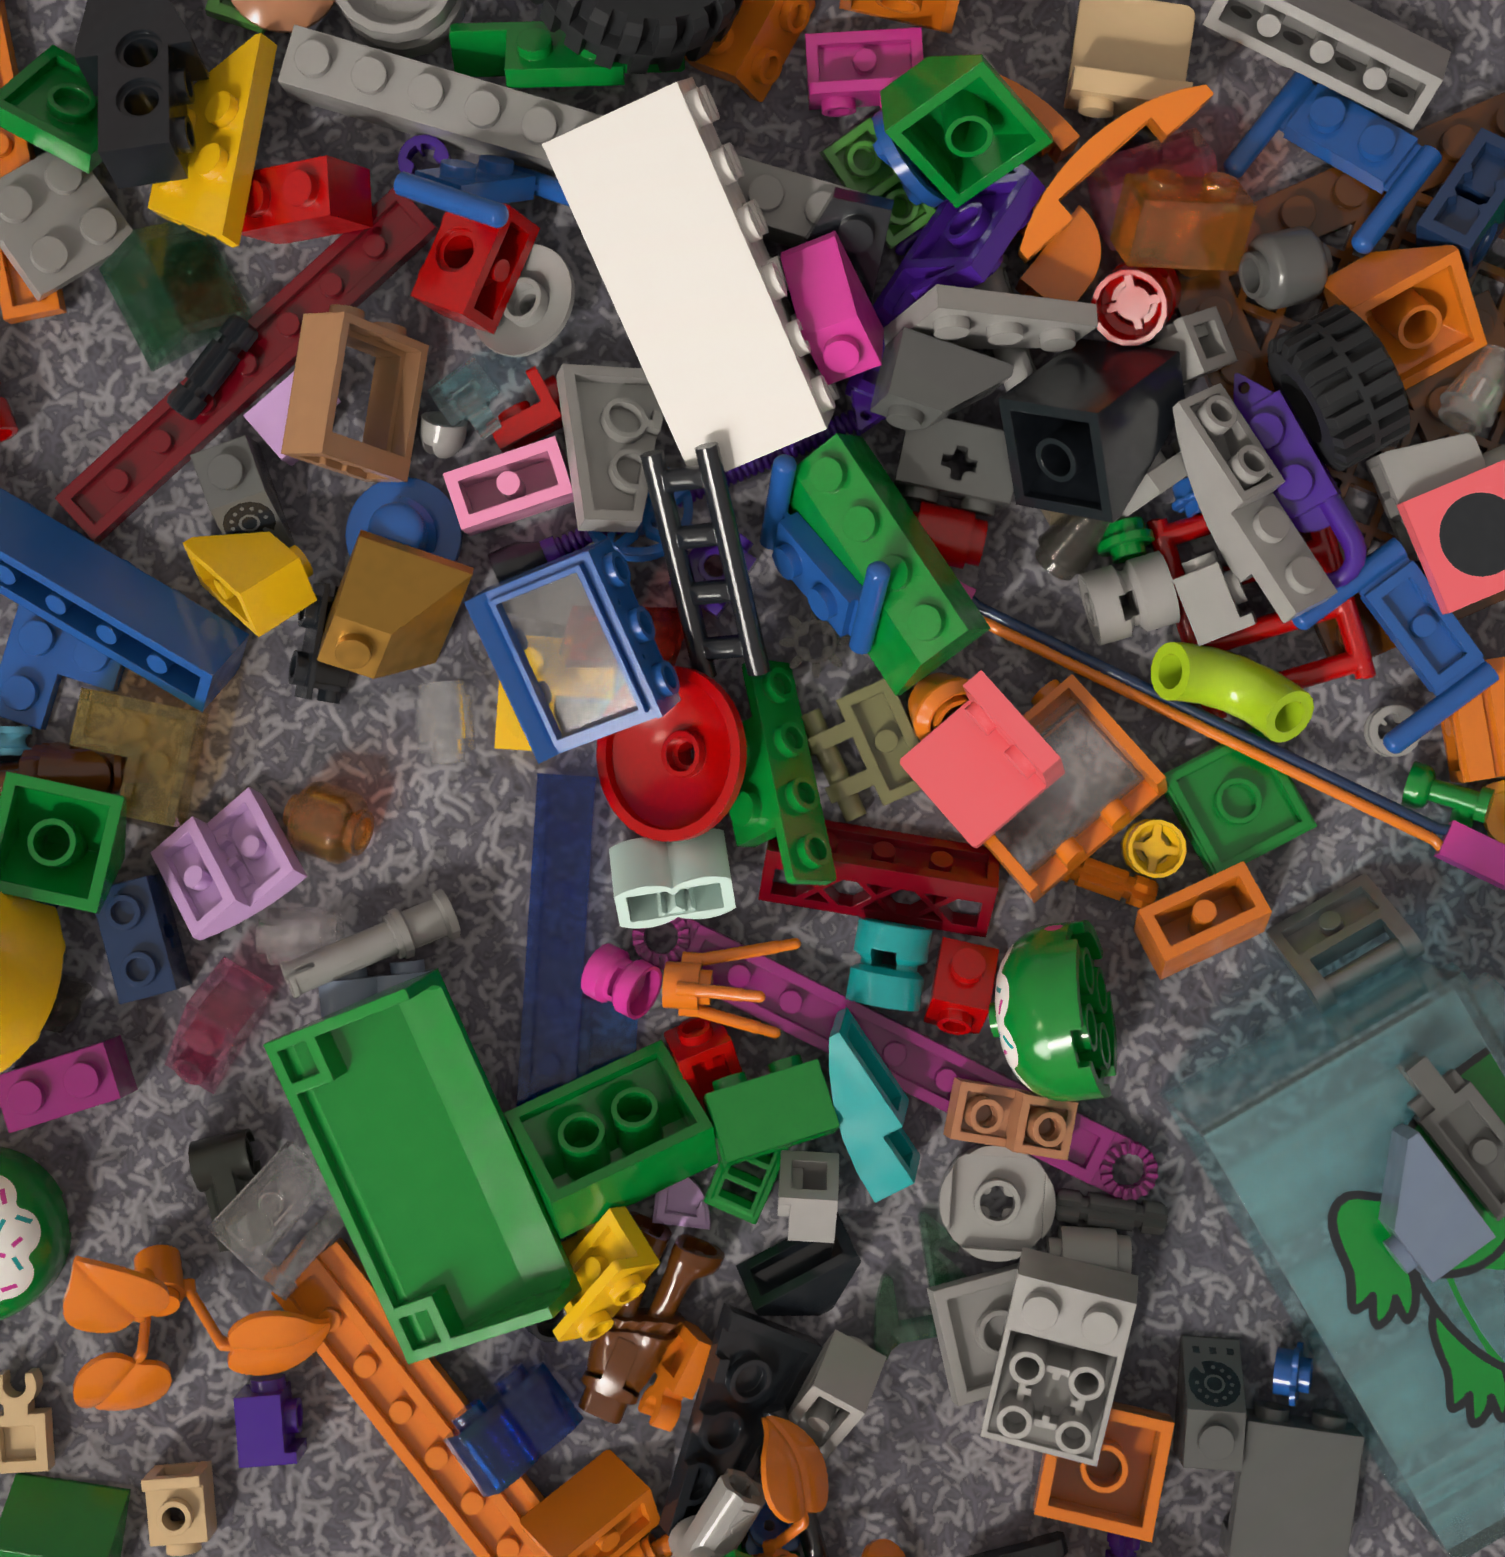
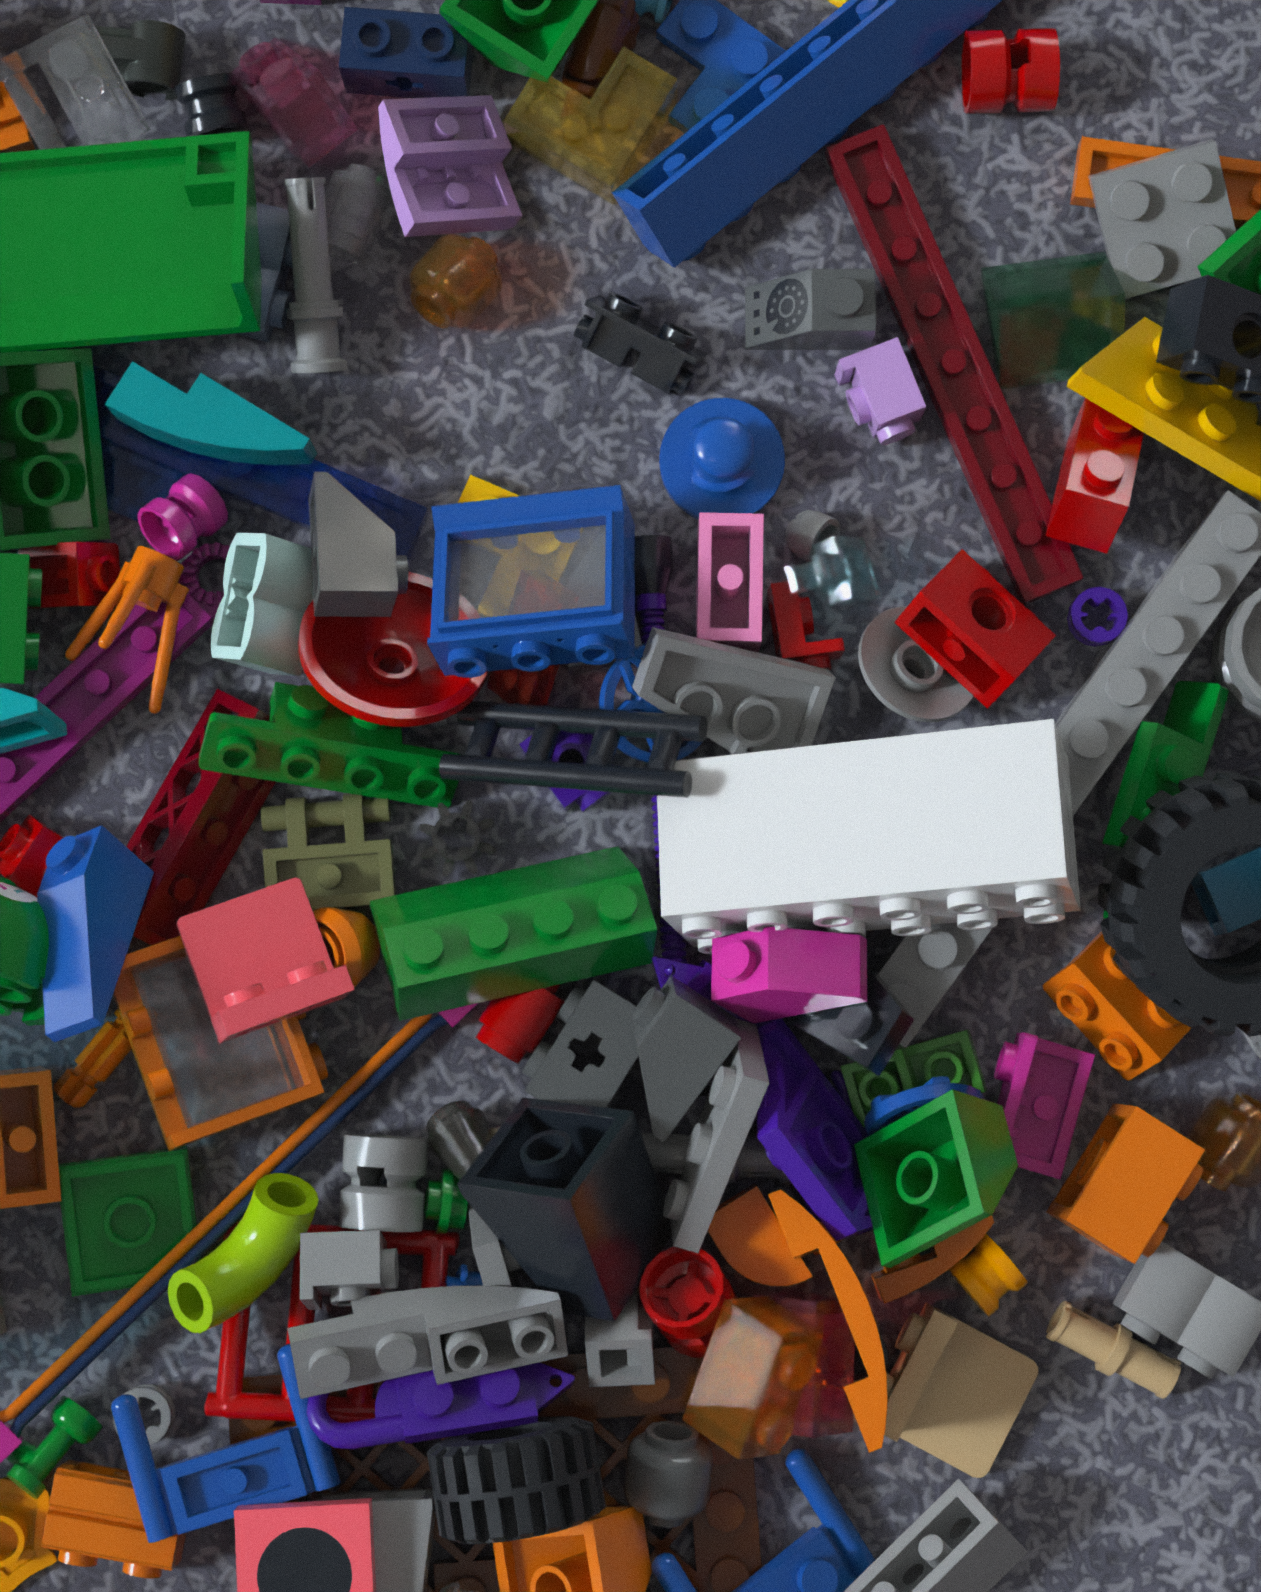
camera: 115 degrees right, 5 degrees down
(212, 367) = (958, 324): black axle -> none
(248, 1094) = (211, 104): none -> black wheel
(253, 576) = (729, 291): yellow slope -> none
(392, 401) = (857, 492): medium nougat window -> none
(392, 608) = (645, 415): pearl gold slope -> none
(444, 721) = (514, 433): clear brick -> none
(478, 188) = (1049, 636): blue plate -> none
(531, 986) = (206, 420): none -> teal slope
(604, 819) = (351, 555): none -> dark grey slope
(816, 570) = (545, 856): blue plate -> none
(885, 984) = (78, 783): teal wheel -> none
(987, 924) = (91, 911): none -> blue slope
(1024, 59) = (987, 1275): none -> light orange wheel
(1163, 850) = (103, 1113): yellow wheel -> none

